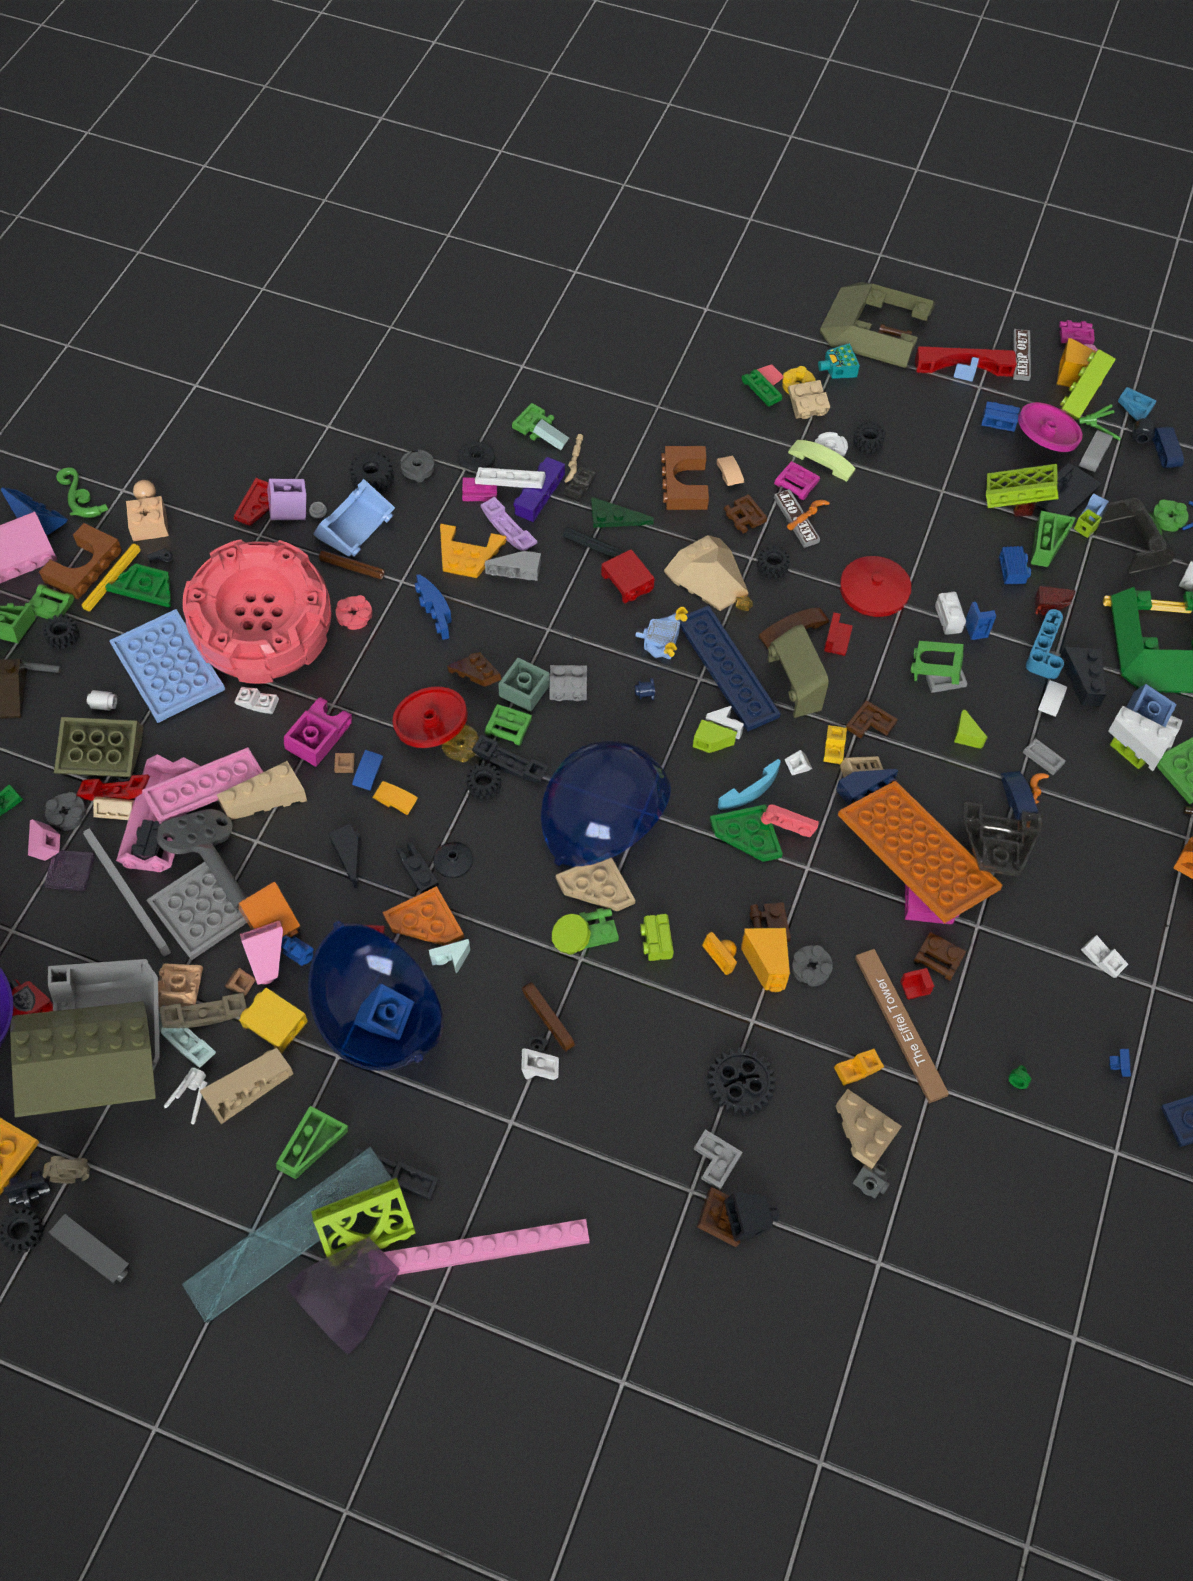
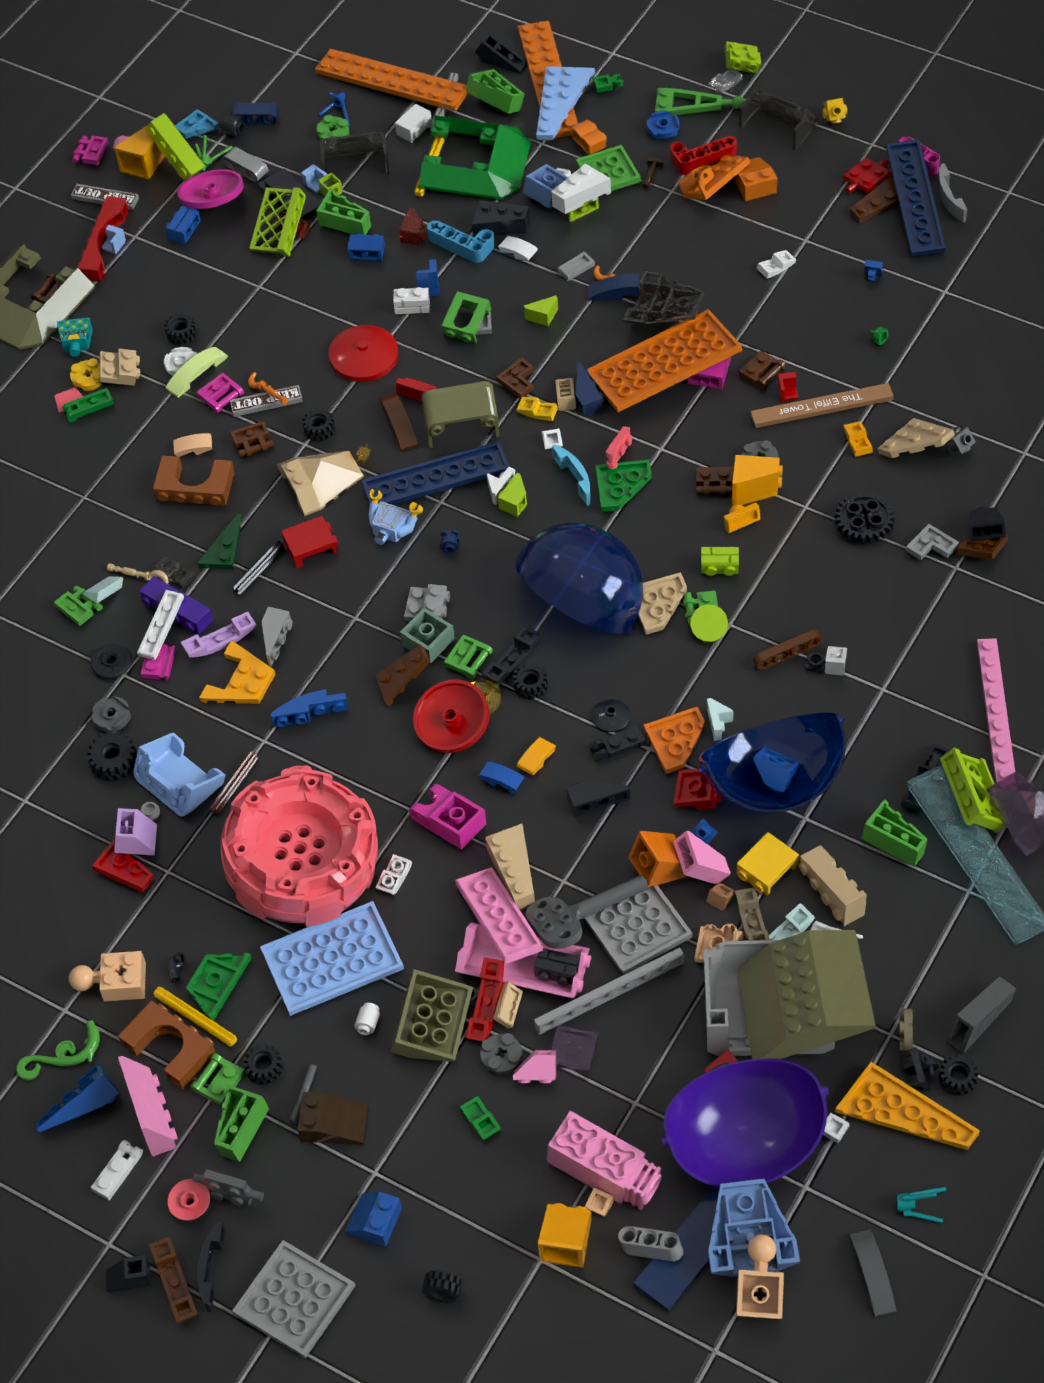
camera: 75 degrees left, 5 degrees down
(344, 762) = (486, 799): medium nougat tile -> none

